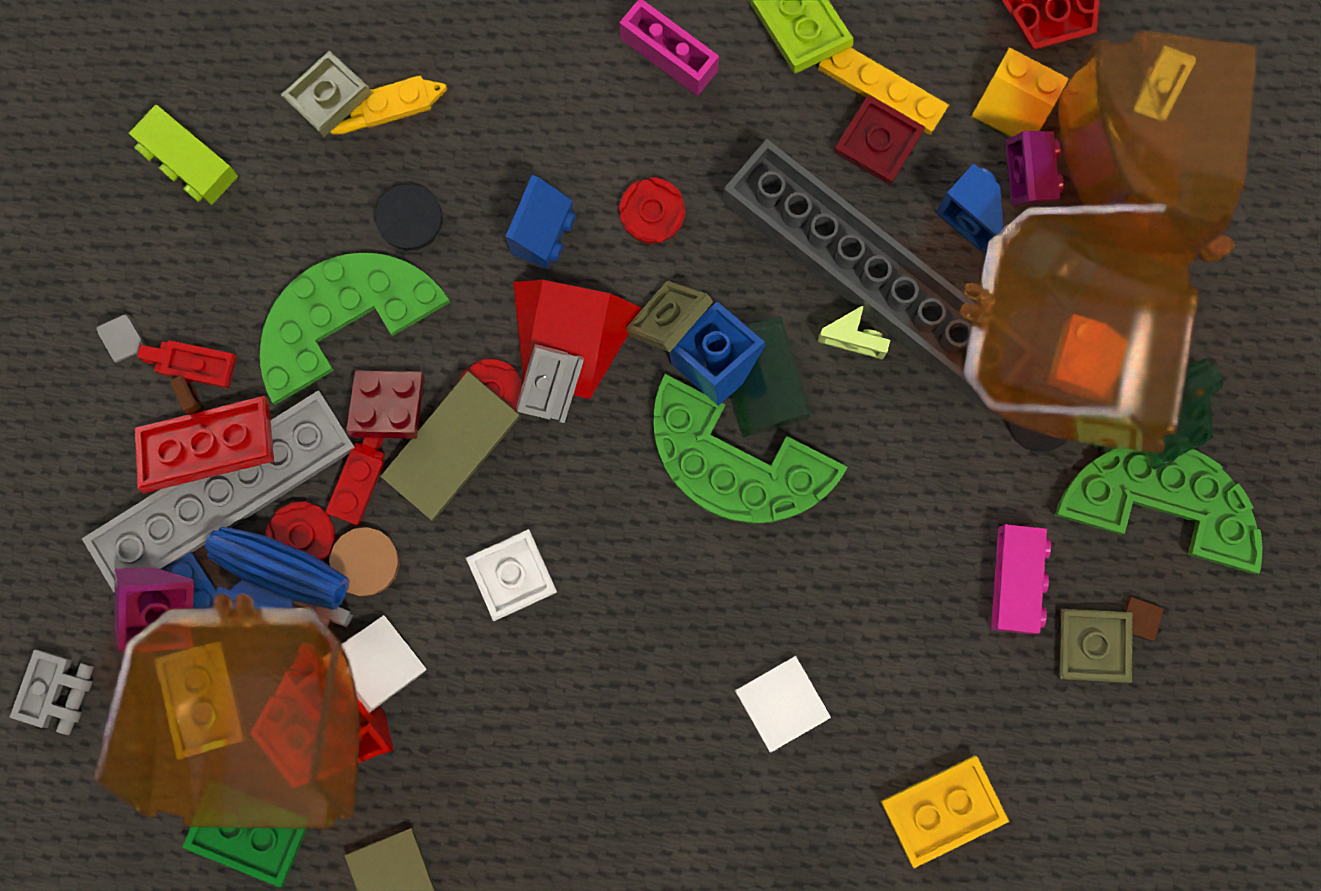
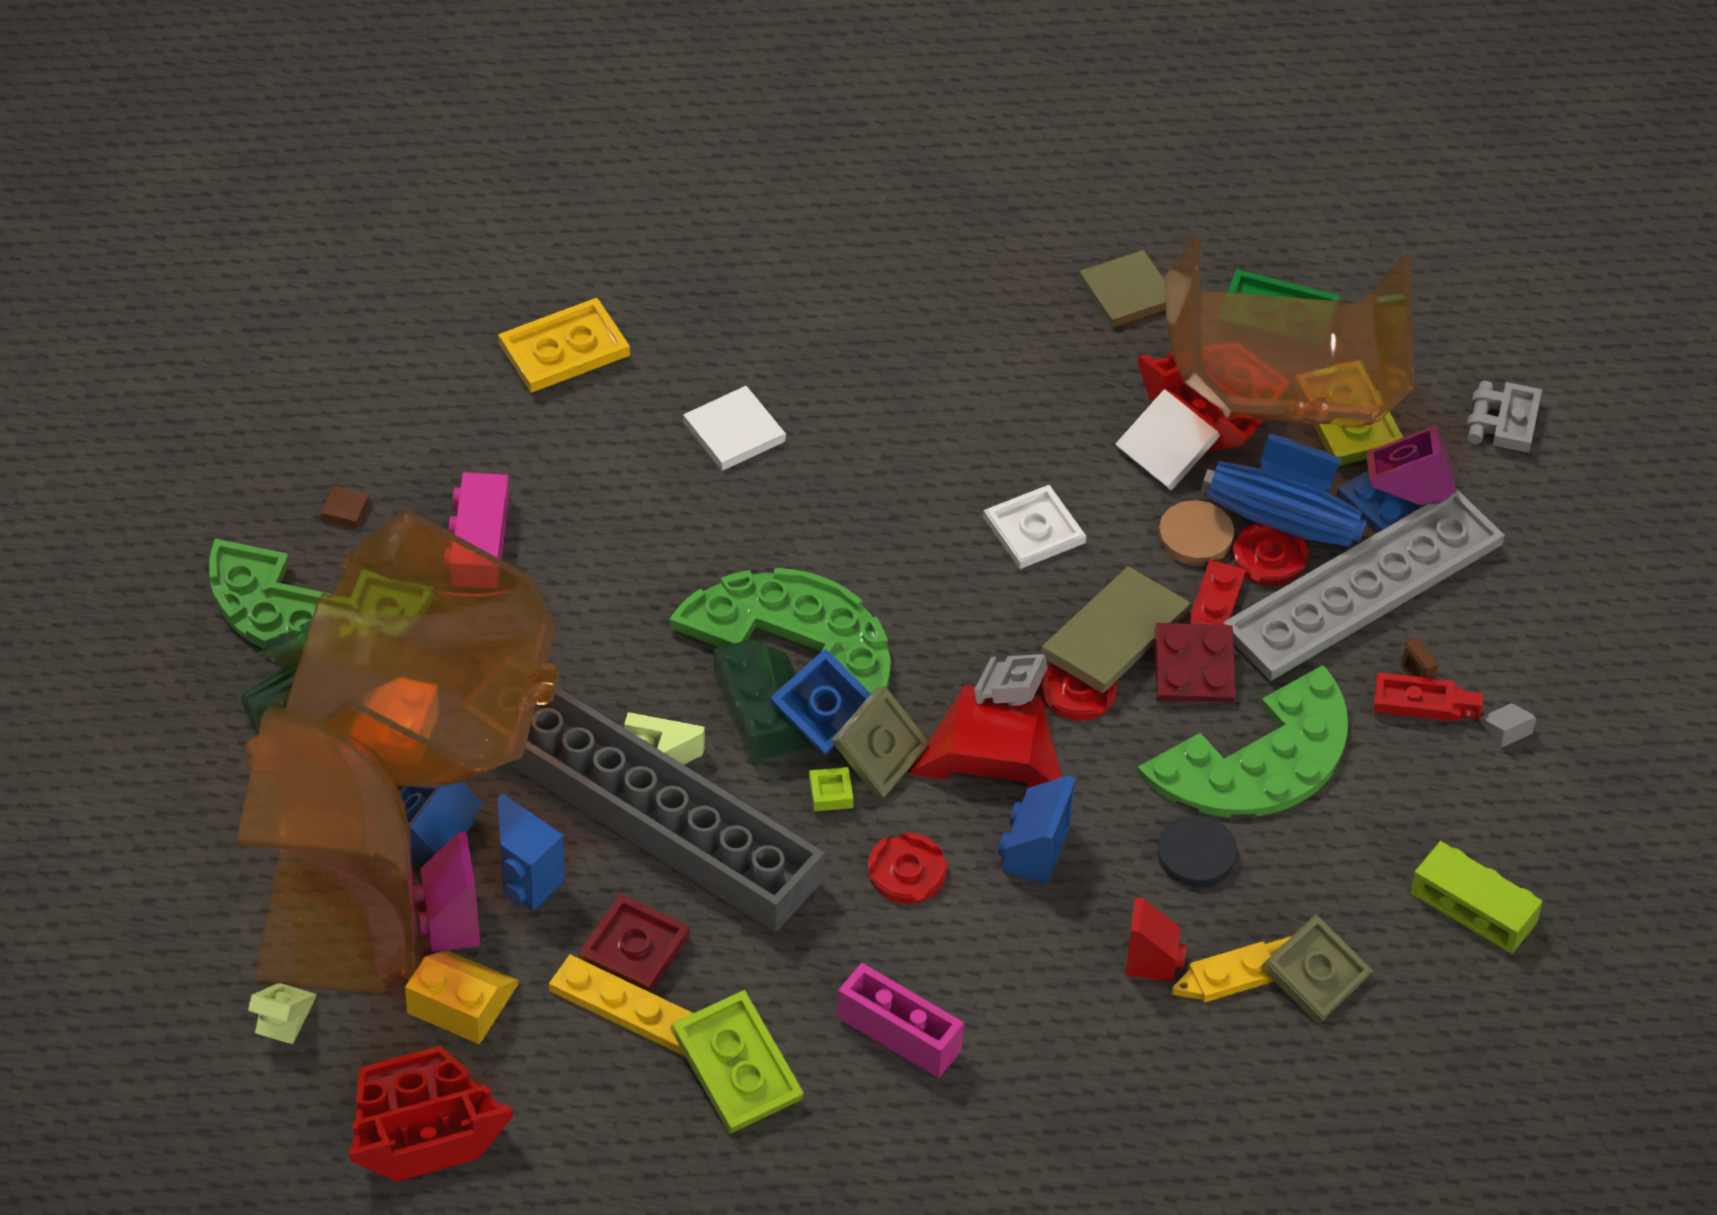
camera: 175 degrees right, 30 degrees down
(203, 444) = (1383, 615): red tile -> none
(458, 109) = (1153, 944): none -> red slope
(713, 282) = (831, 789): none -> lime plate
(1095, 645) = (397, 481): olive tile -> none

